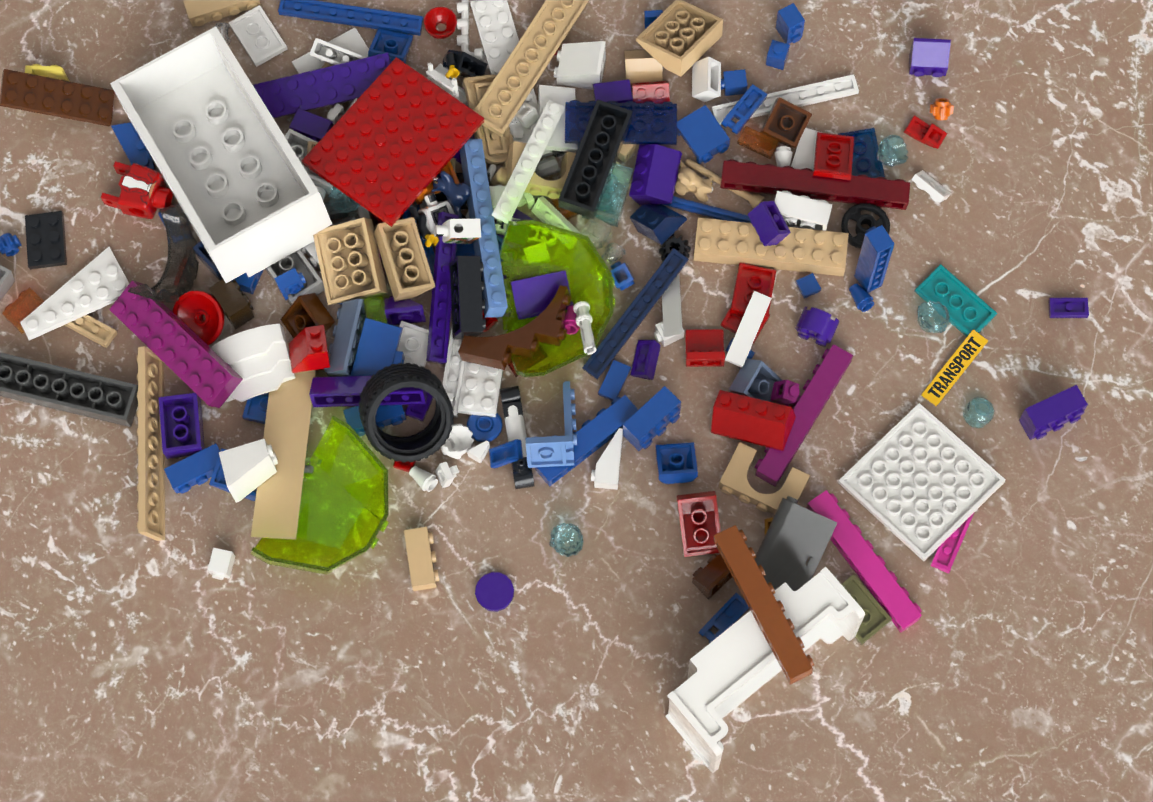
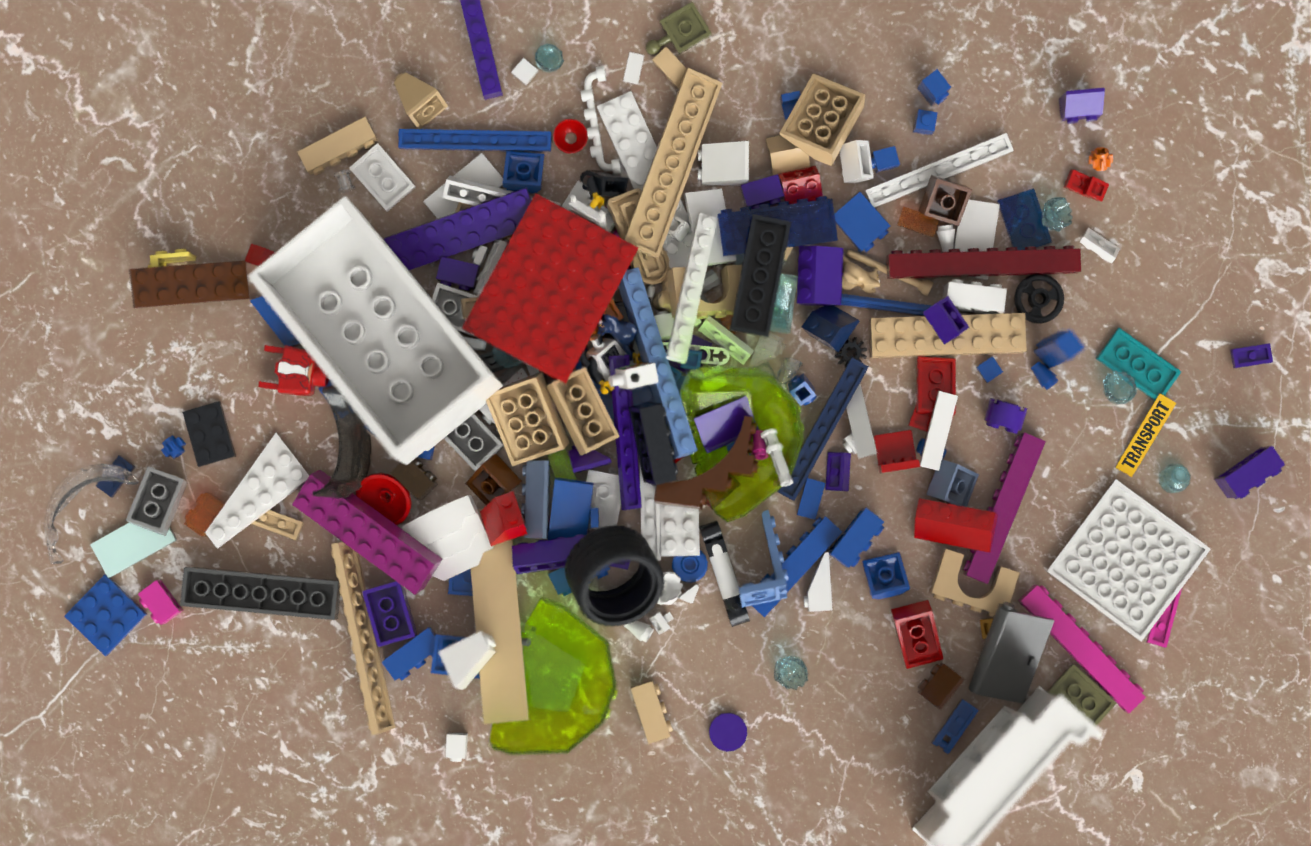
camera: 10 degrees left, 15 degrees up
(290, 282) = (472, 454): blue brick -> none
(505, 453) = (717, 594): blue tile -> none
(744, 108) = (901, 189): blue plate -> none
(763, 605) = (1005, 743): dark orange brick -> none
(790, 392) = (988, 489): magenta brick -> none
(833, 156) = (998, 230): red tile -> none

